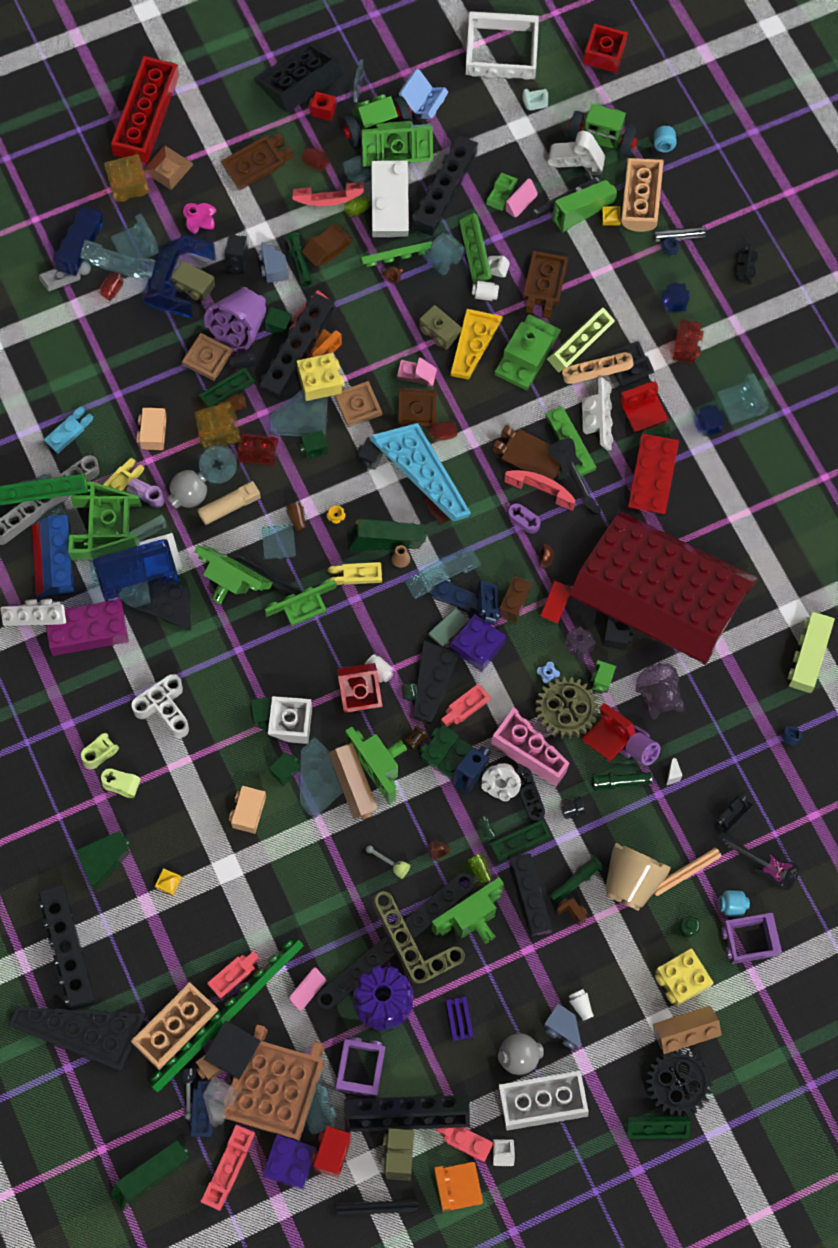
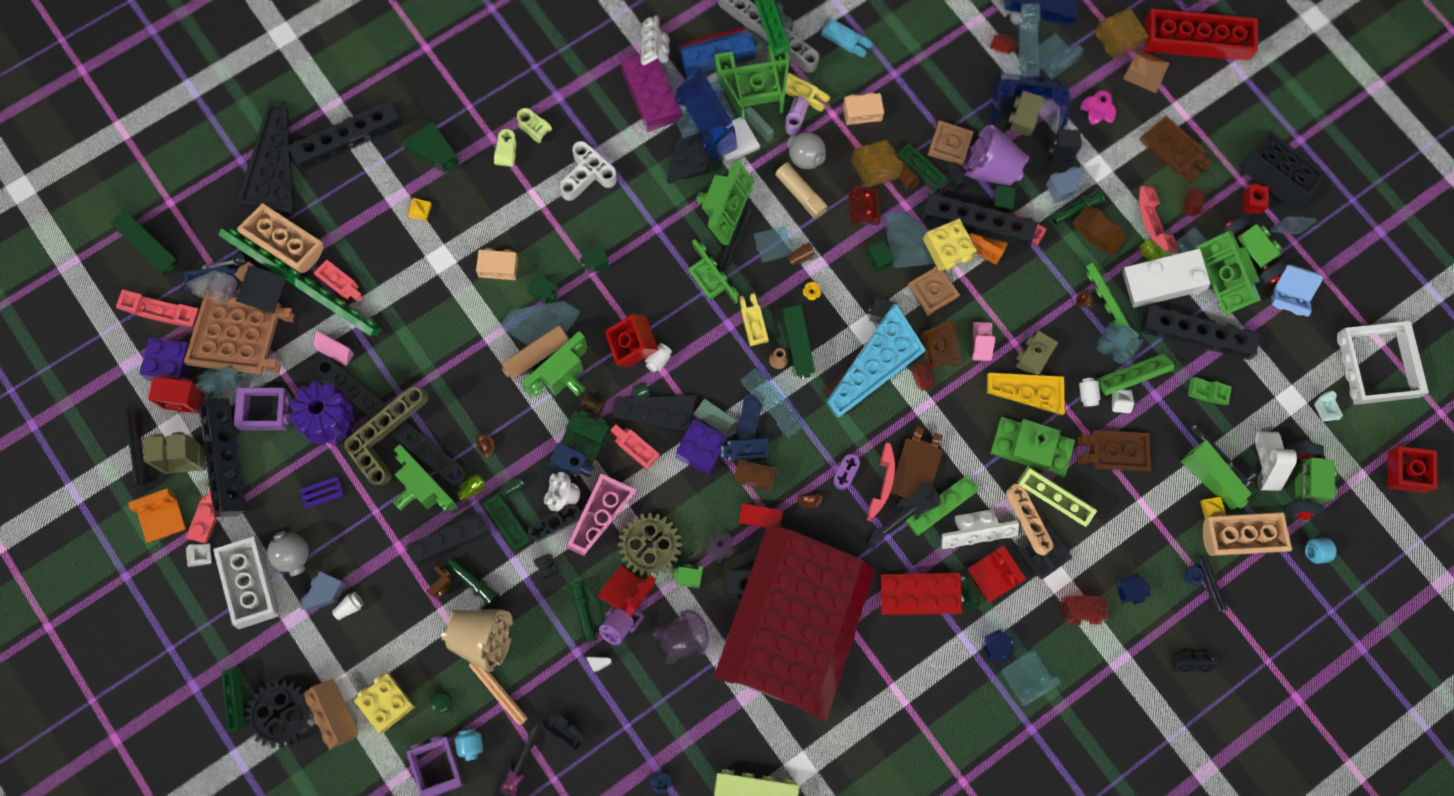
camera: 75 degrees right, 5 degrees up
(213, 473) = (837, 169): clear light blue brick -> none
(290, 719) = (589, 284): white slope -> none
(400, 868) = (461, 412): hinge -> none
(521, 198) = (1206, 411): bright pink slope -> none
(542, 671) = (684, 527): light blue plate -> none

